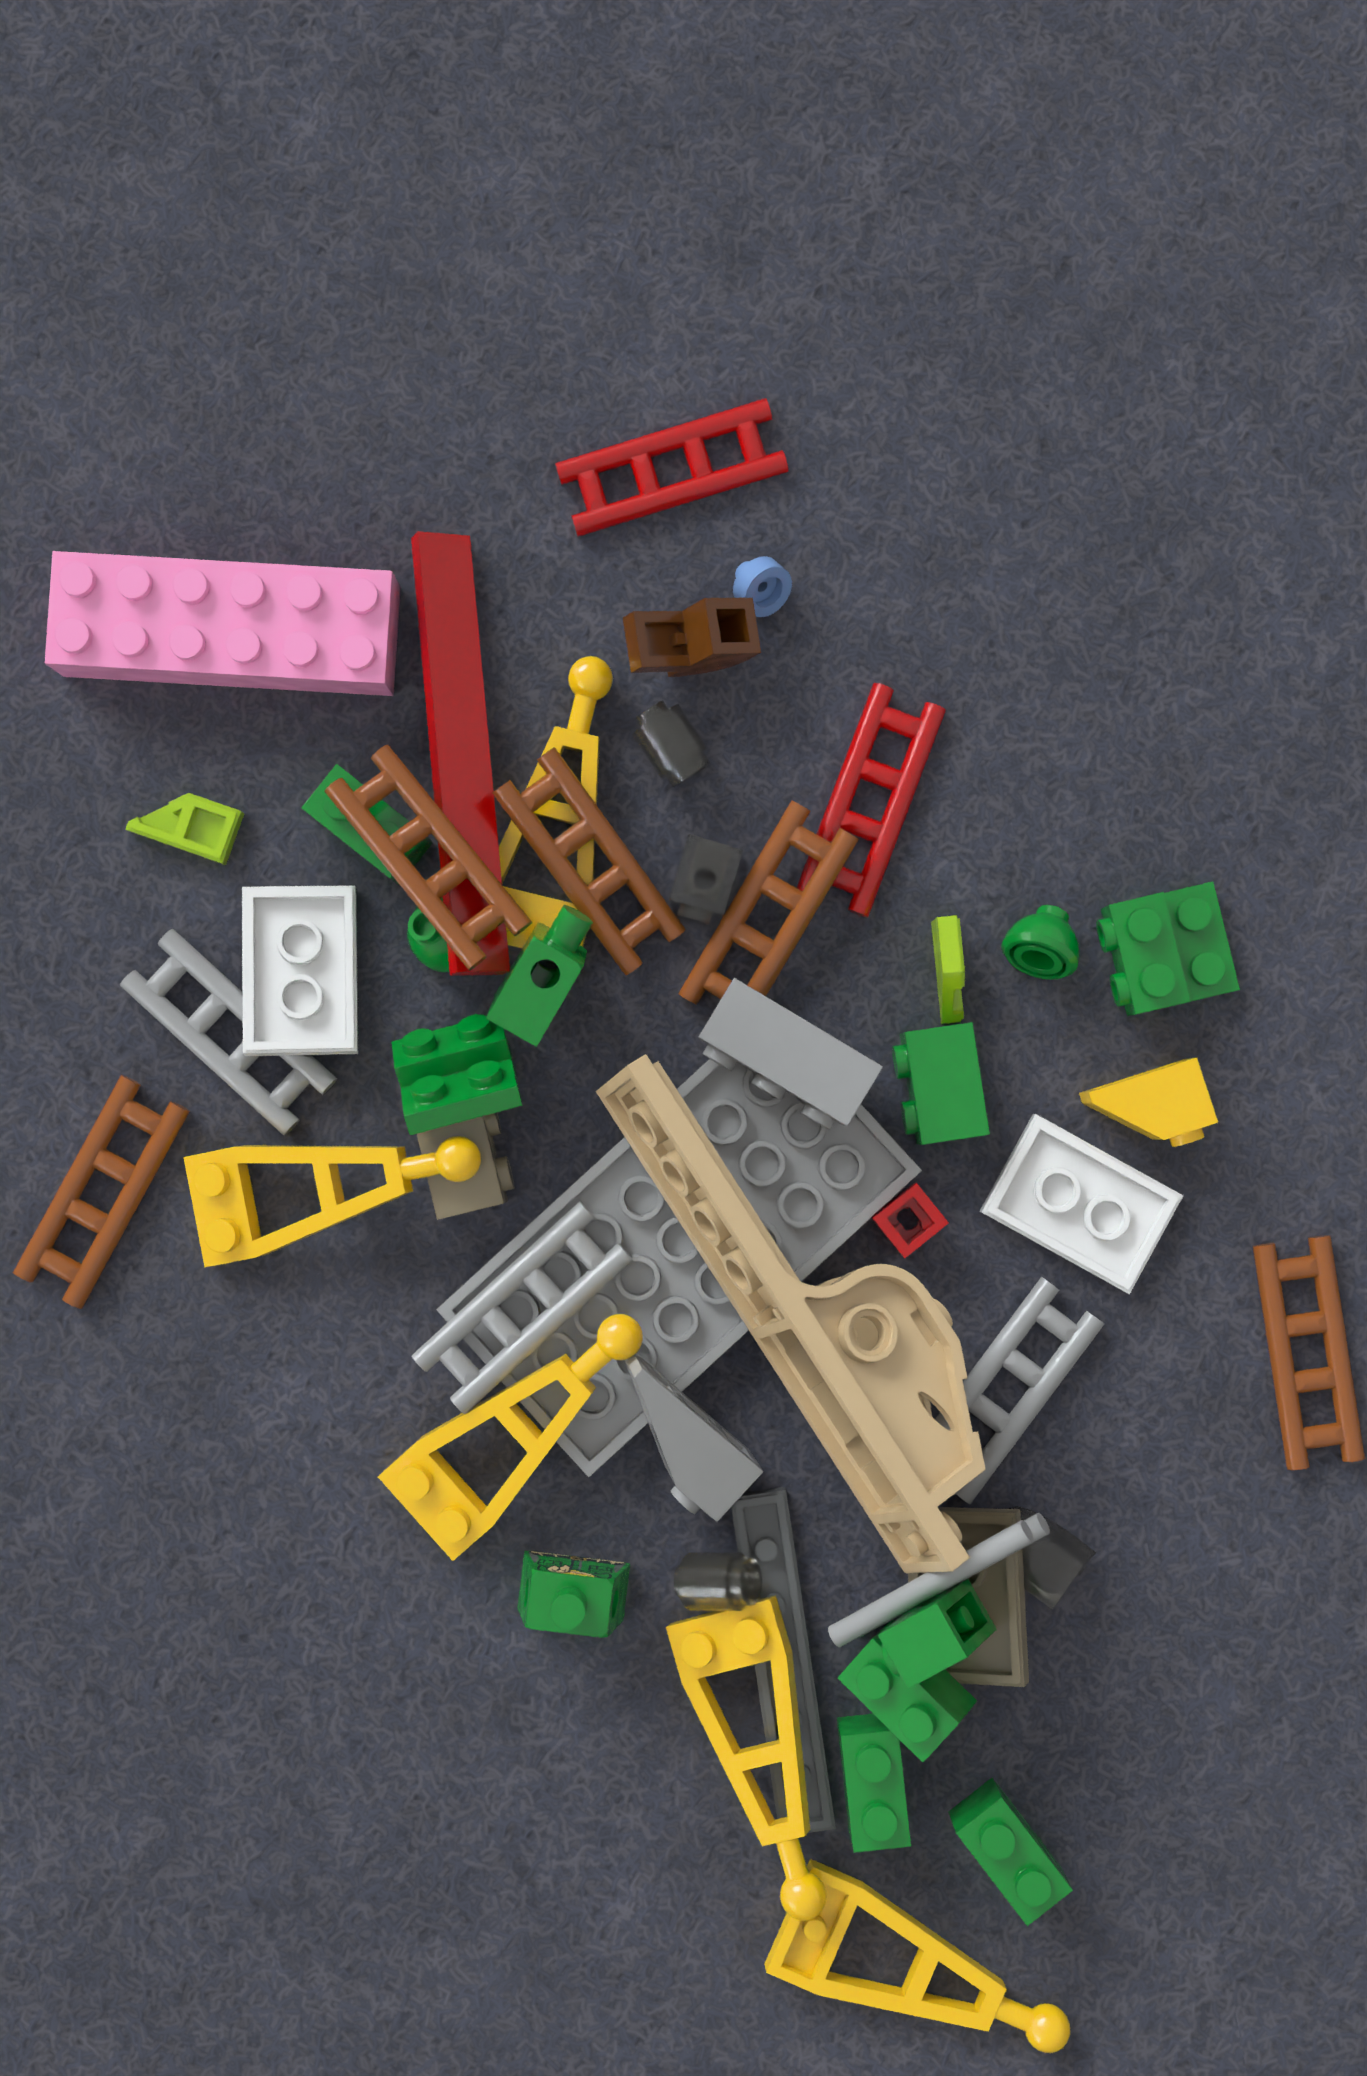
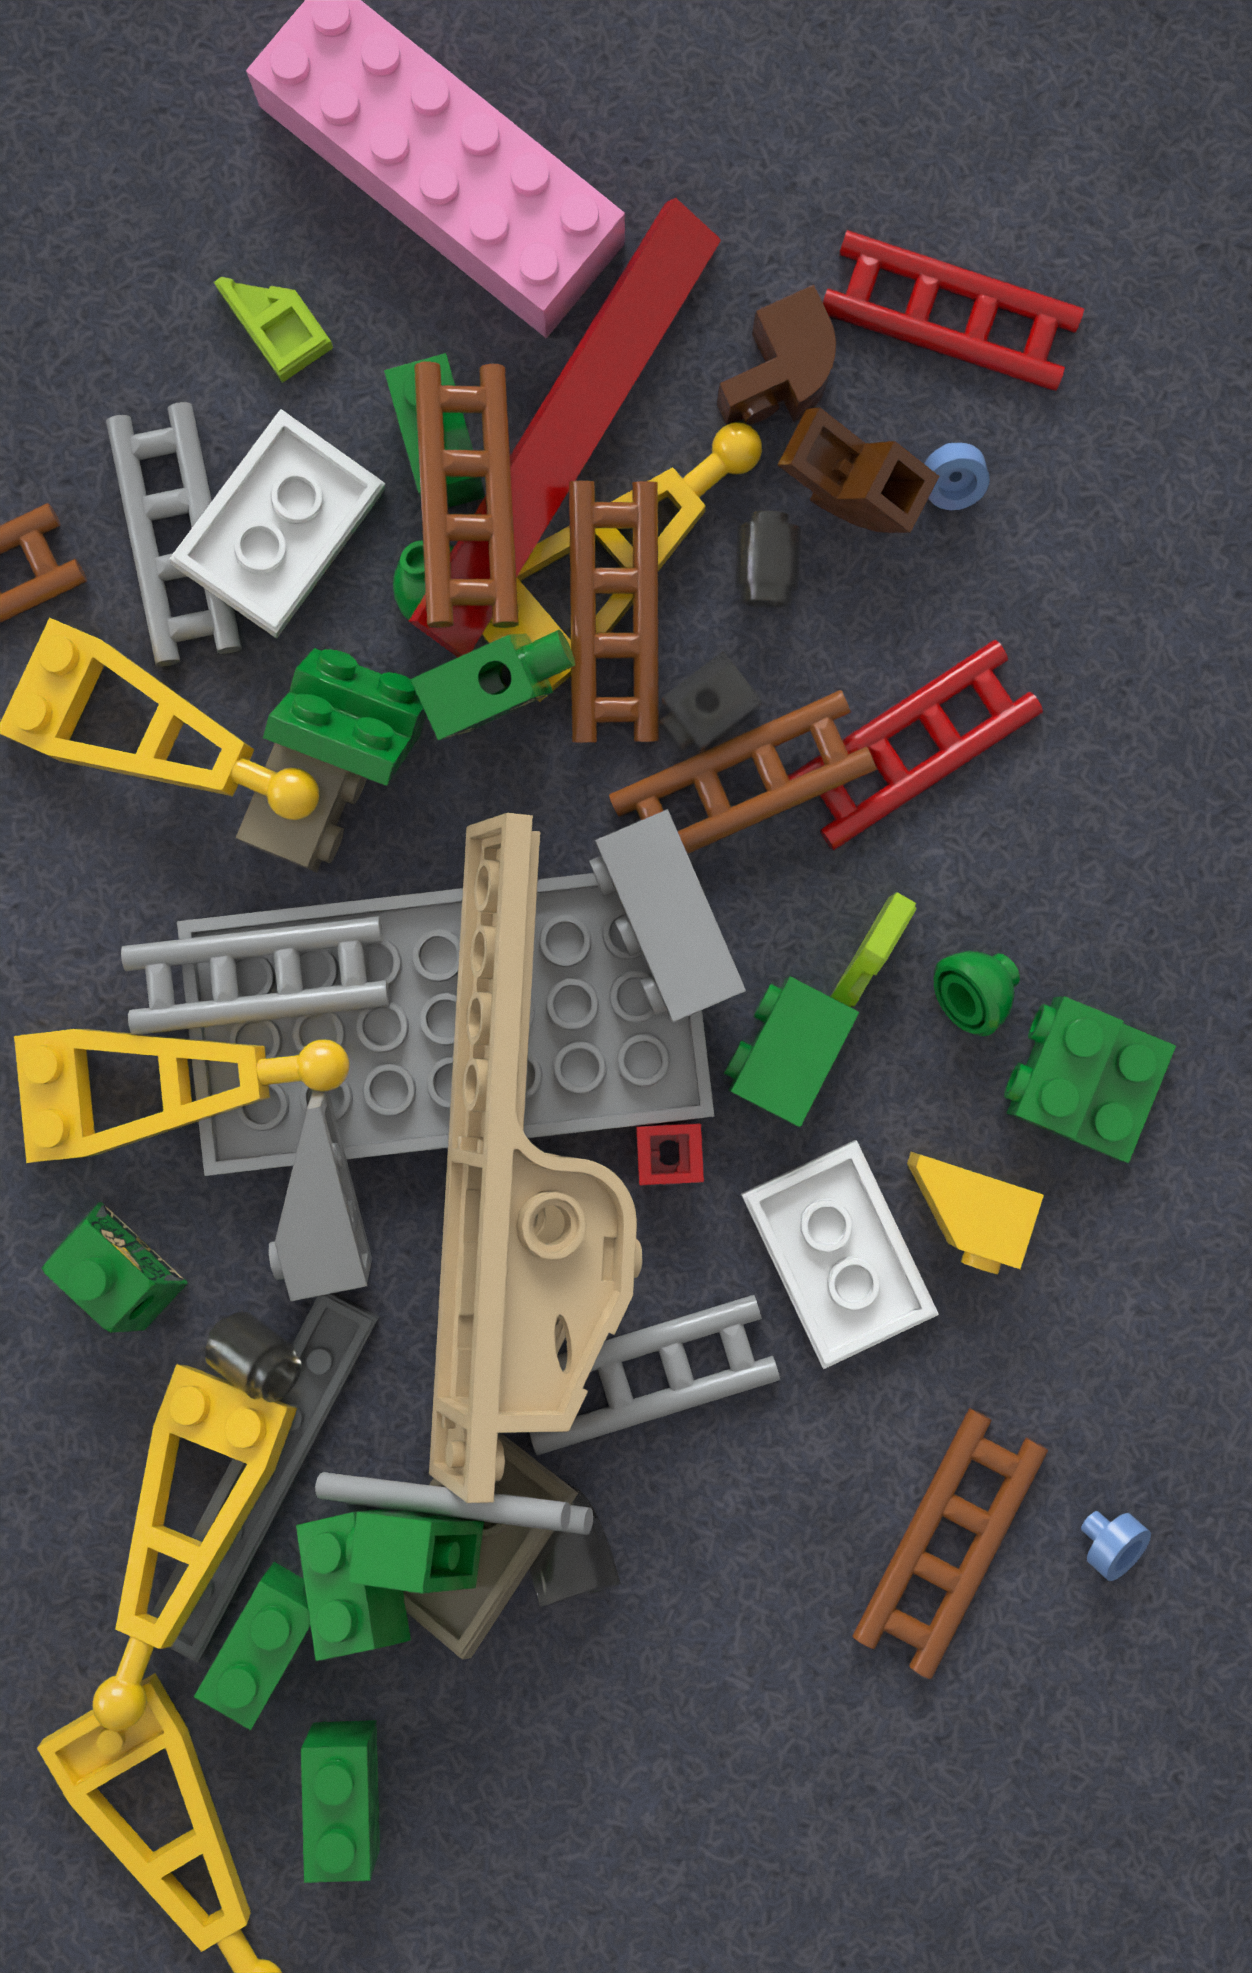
camera: 30 degrees right, 0 degrees up
(588, 580) = (798, 358): none -> reddish brown brick

